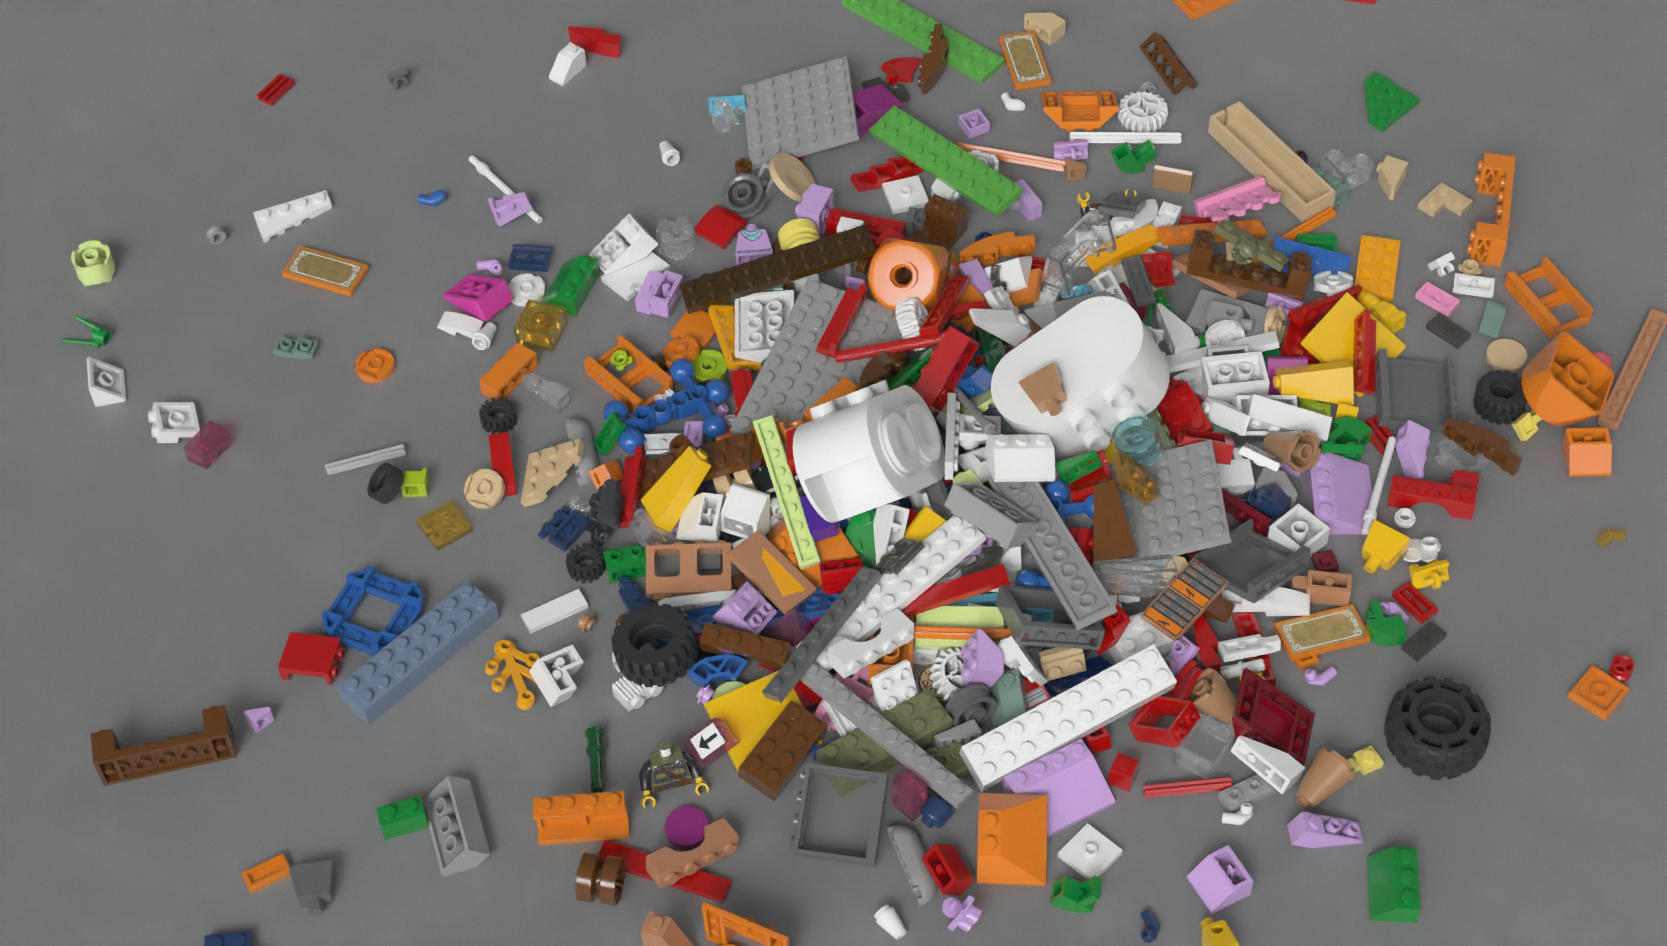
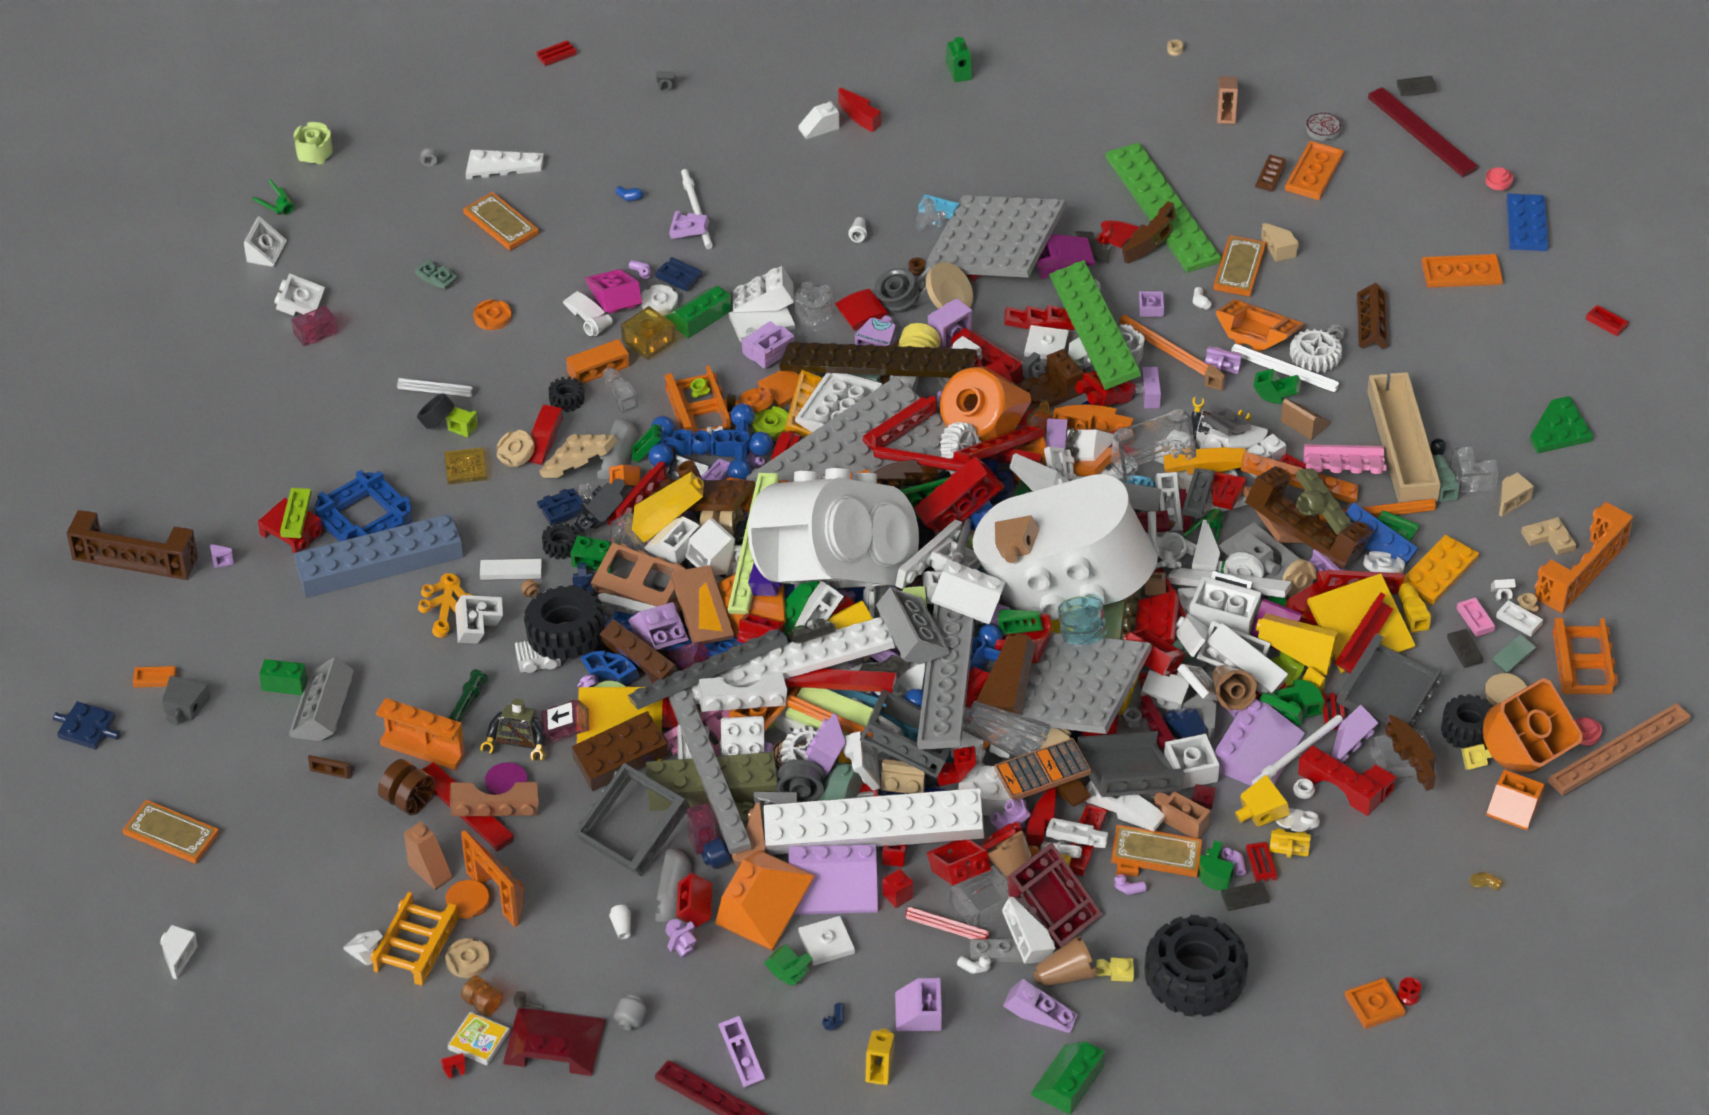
camera: 25 degrees right, 5 degrees down
(314, 643) = (296, 512): none -> lime plate
(506, 890) = (330, 767): none -> reddish brown slope
(965, 774) = (756, 834): none -> nougat slope
(985, 222) = (1097, 395): none -> red hips
(1134, 478) = (1055, 646): pearl gold plate -> none

